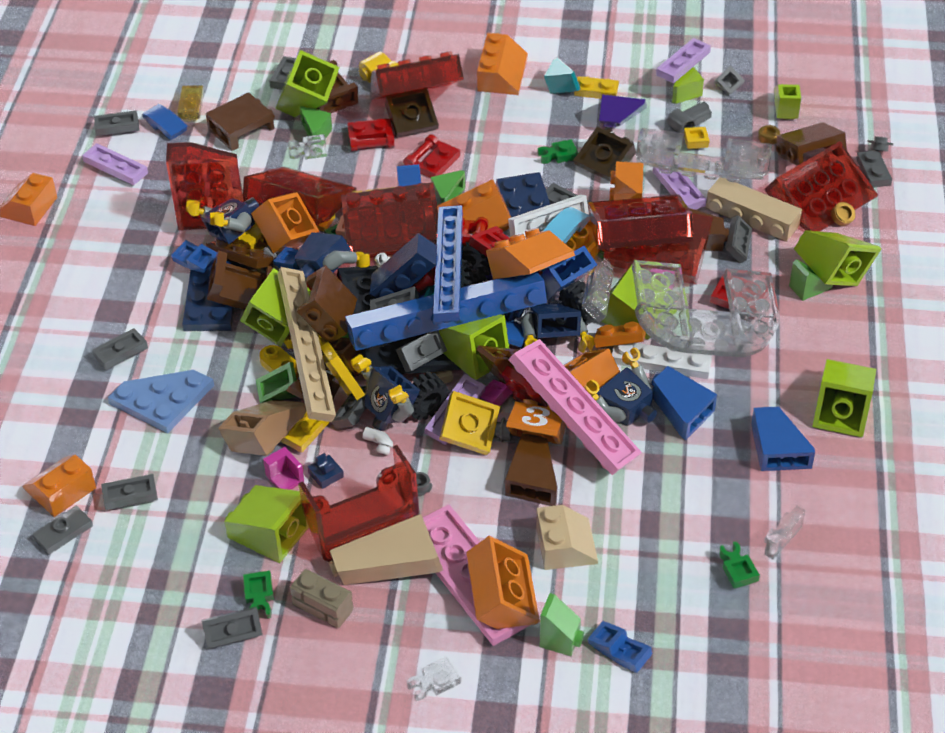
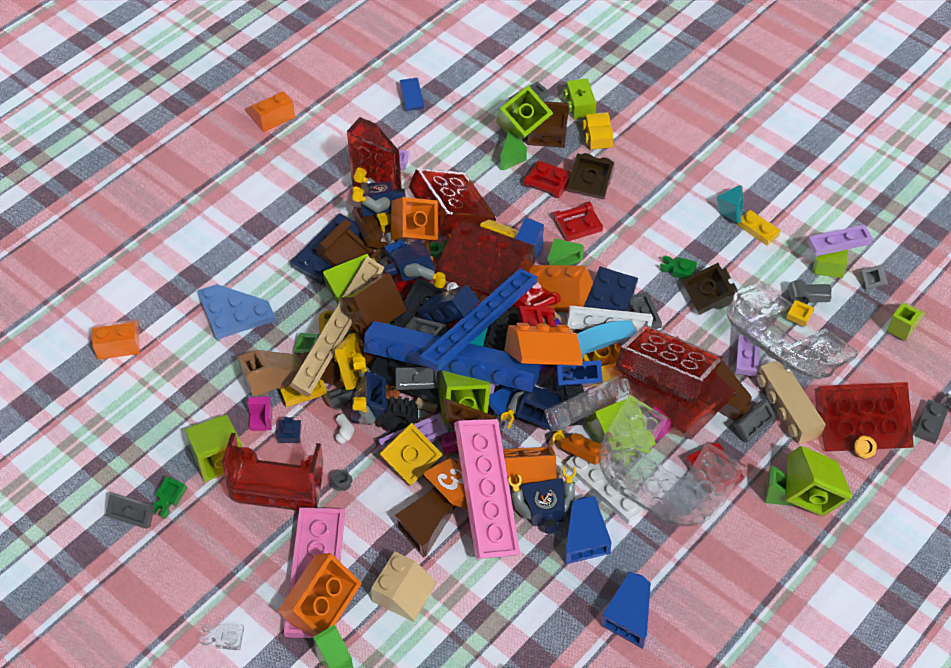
camera: 35 degrees right, 5 degrees up
(62, 530) = (92, 372): dark grey plate -> none
(115, 164) = (347, 106): lavender plate -> none
(116, 123) = (377, 78): dark grey plate -> none
(120, 348) = (235, 257): dark grey plate -> none
(129, 492) = (152, 369): dark grey plate -> none
(190, 102) = (442, 87): clear yellow plate -> none
(194, 257) = (335, 212): blue slope -> none
(238, 118) = (463, 117): reddish brown panel -> none
(311, 147) = (494, 167): clear plate -> none
(322, 598) = (201, 526): dark tan brick -> none
(338, 48) = (580, 98): none -> lime brick
(387, 554) = (270, 521): tan slope -> none
(418, 75) = (608, 149): clear red slope -> none
(501, 65) = (696, 169): orange slope -> none
(618, 109) = (754, 255): dark purple slope -> none
(627, 181) = (698, 325): orange slope -> none
(768, 134) = (867, 342): pearl gold tile -> none
(795, 143) = (888, 366): reddish brown panel -> none
(844, 398) = (716, 605): lime slope -> none

